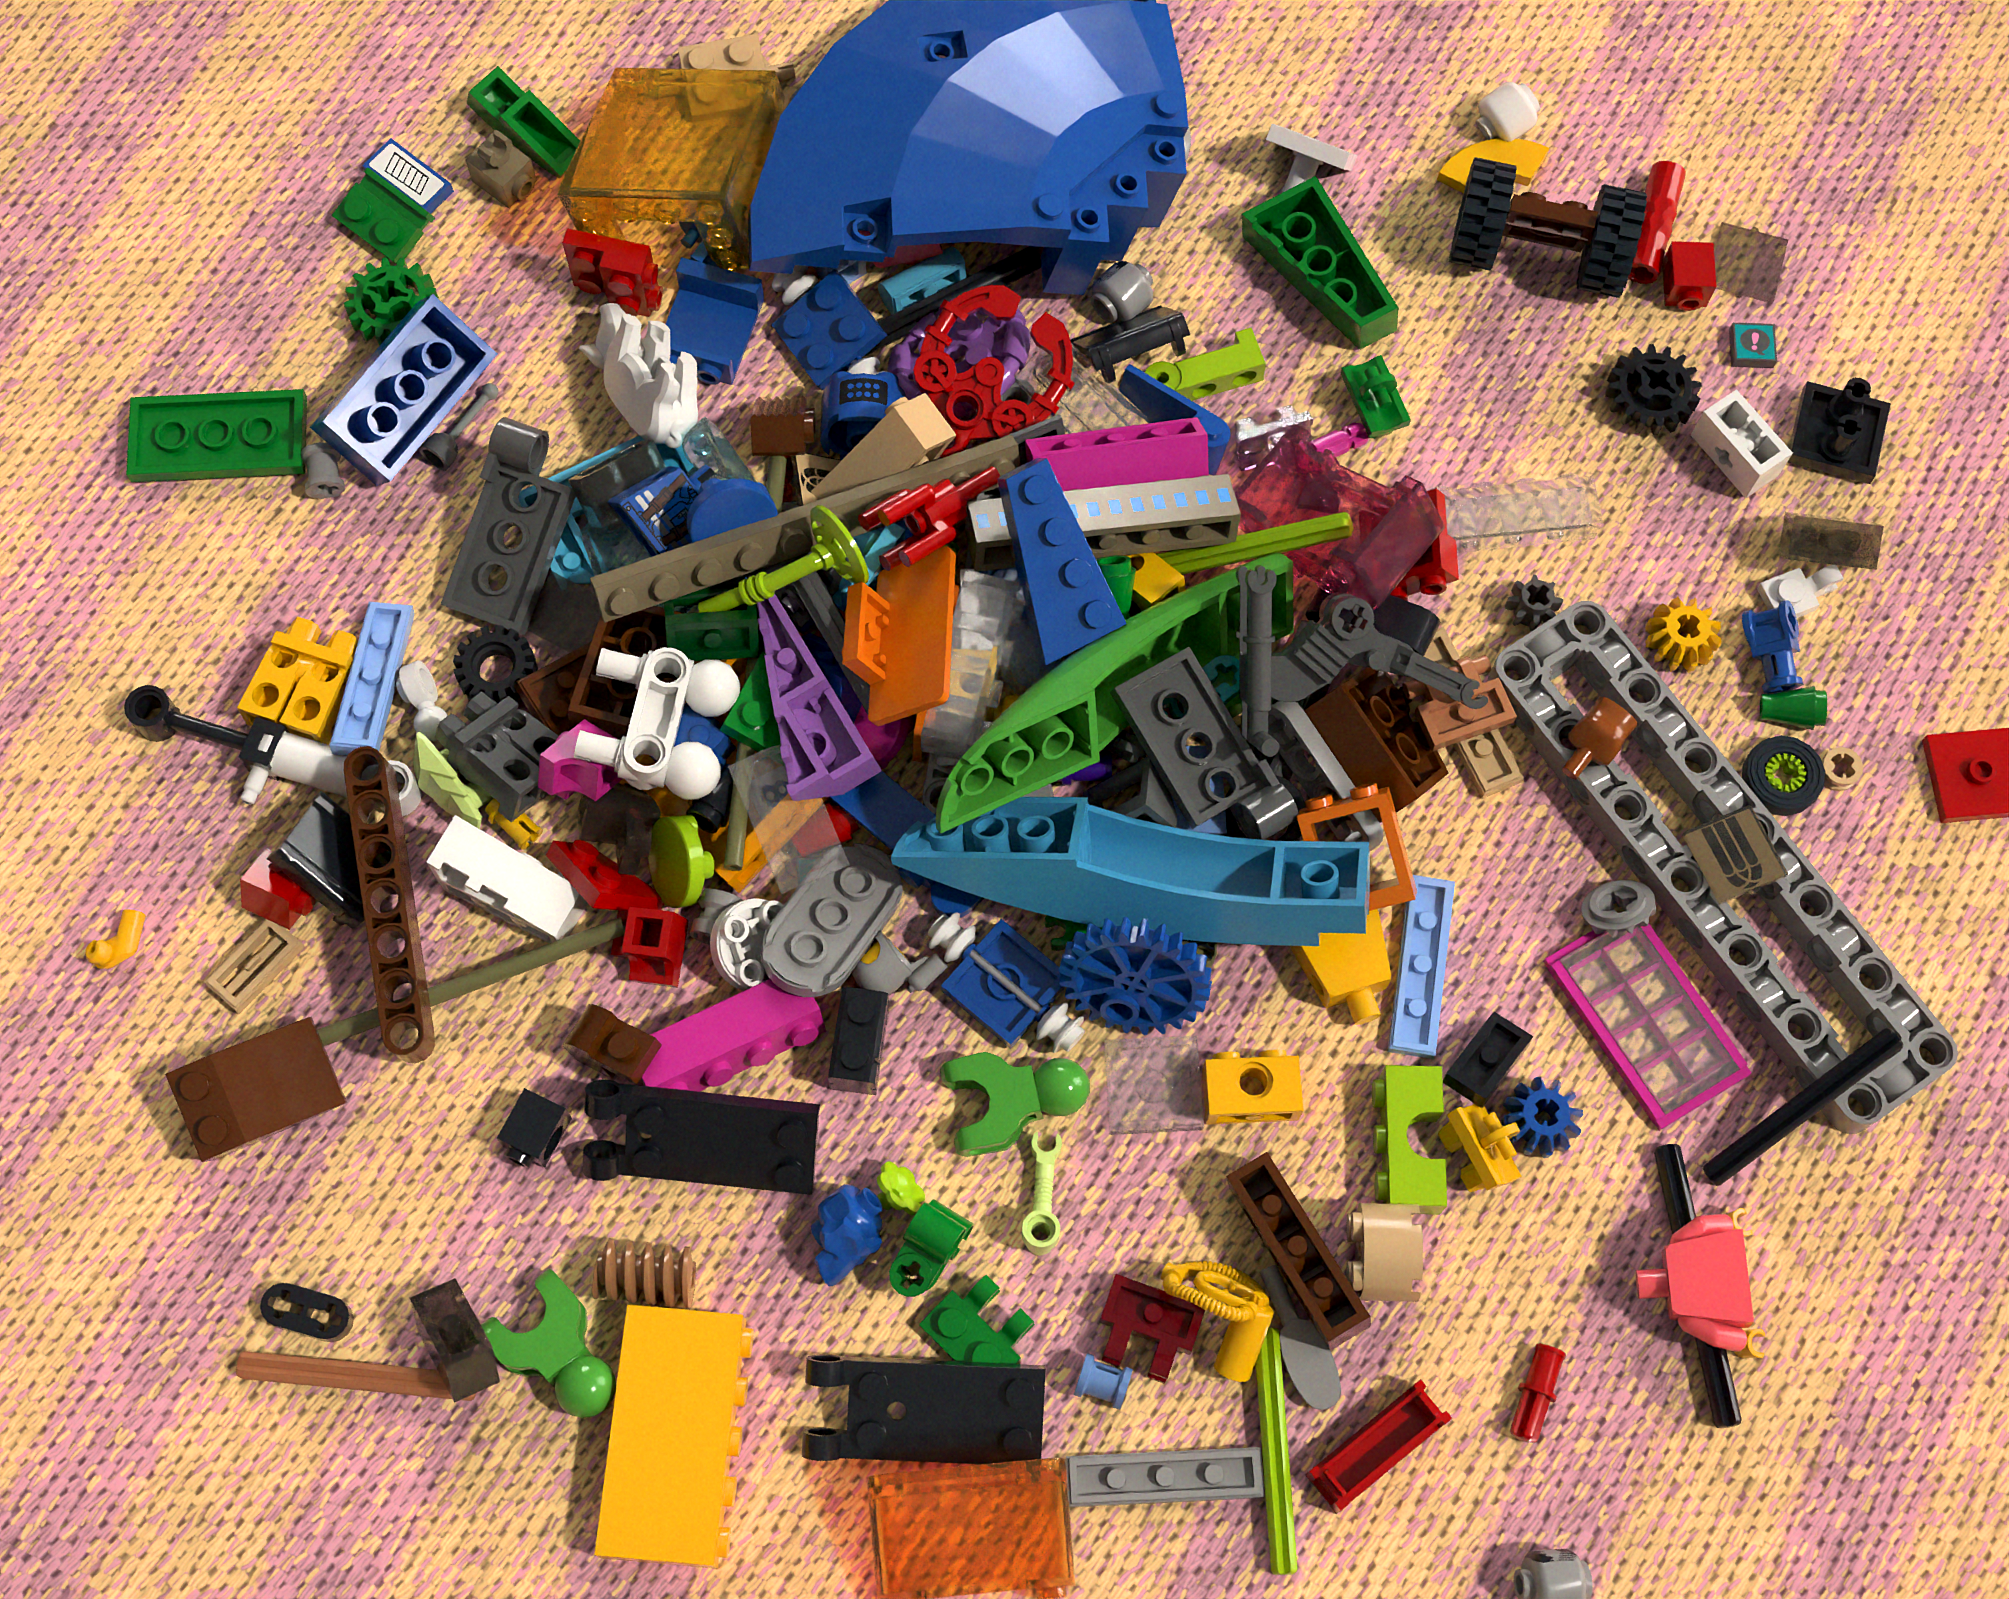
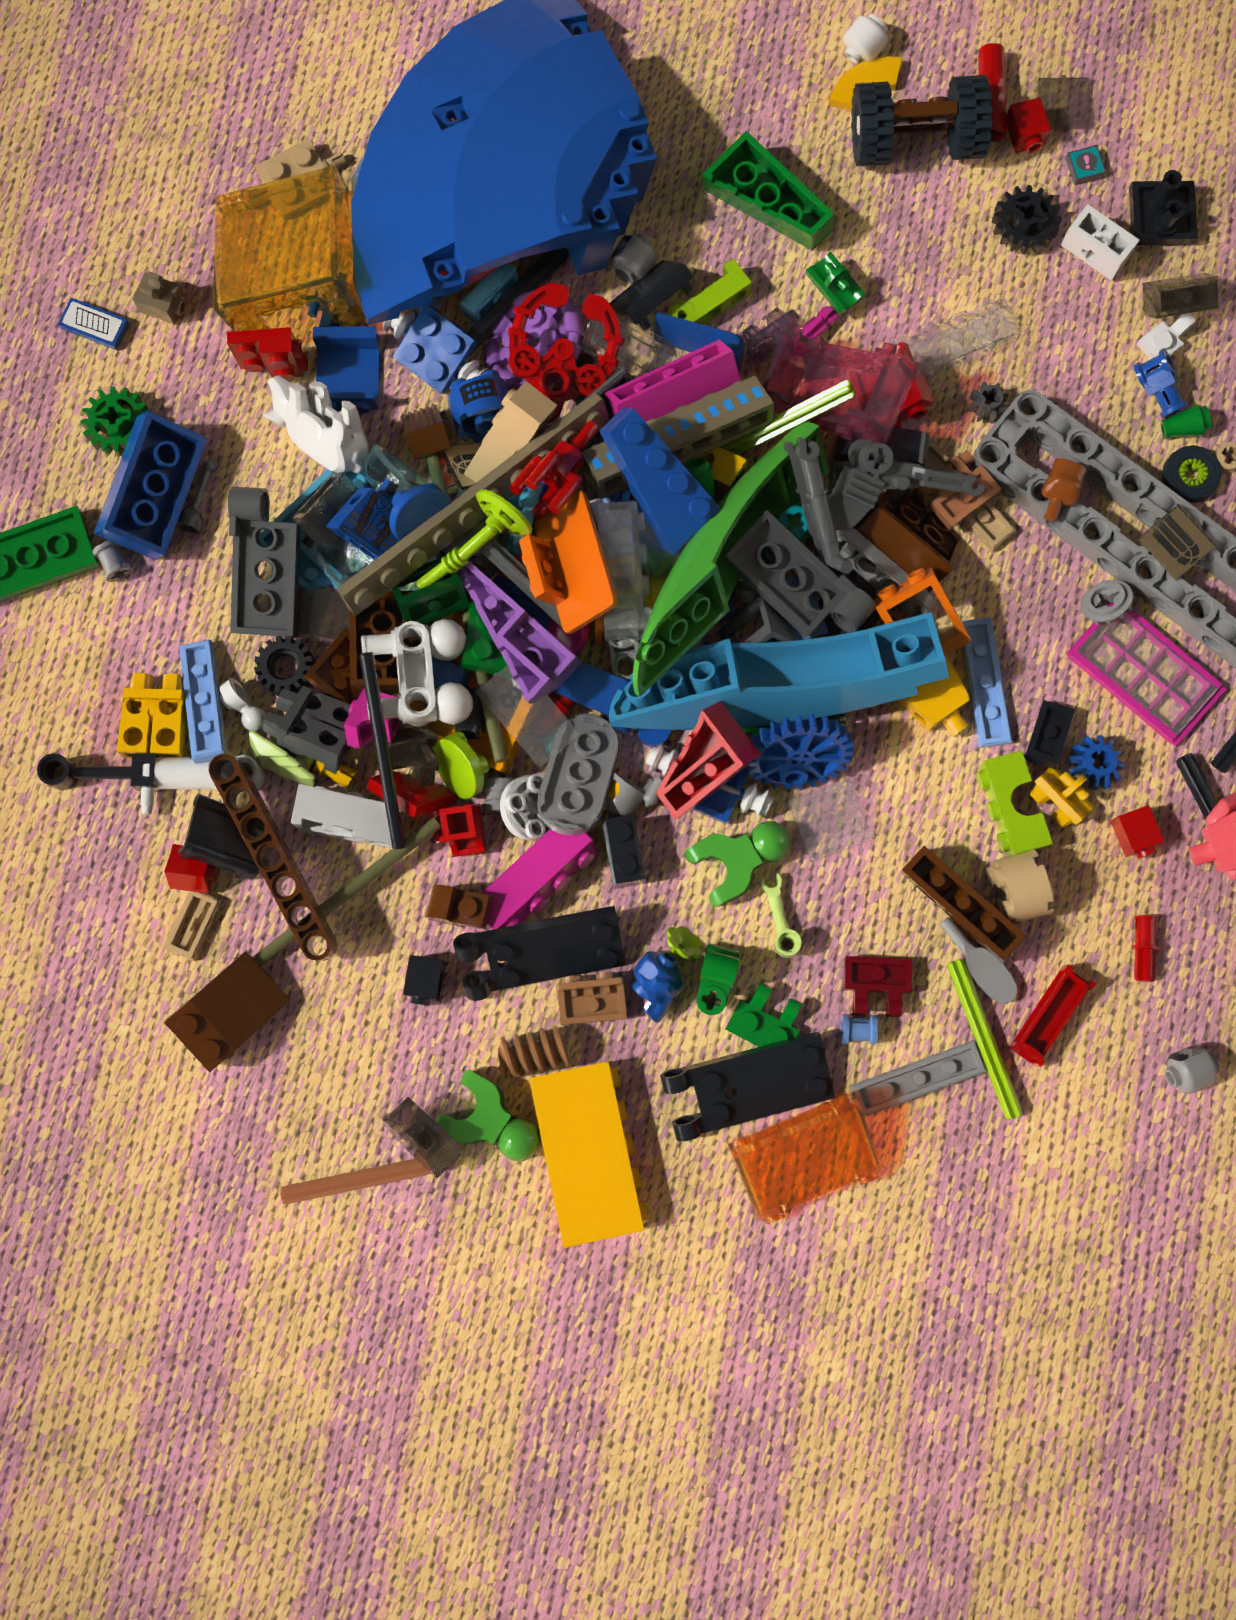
camera: 10 degrees left, 10 degrees up
(119, 947) = (96, 939): yellow arm -> none
(303, 1323) = (314, 1156): black beam -> none
(383, 216) = (86, 358): green plate -> none
(524, 121) = (164, 256): green slope -> none
(578, 803) = (382, 749): none -> black piece
(749, 1226) = (591, 999): none -> medium nougat bracket
(1005, 949) = (707, 761): none -> red wedge
(1229, 1104) = (883, 816): yellow brick -> none
(1248, 1315) = (943, 963): yellow piece -> none
(1308, 154) = (734, 113): white tile -> none
(1572, 1228) = (1137, 832): none -> red brick
(1688, 650) = (1101, 405): yellow gear -> none

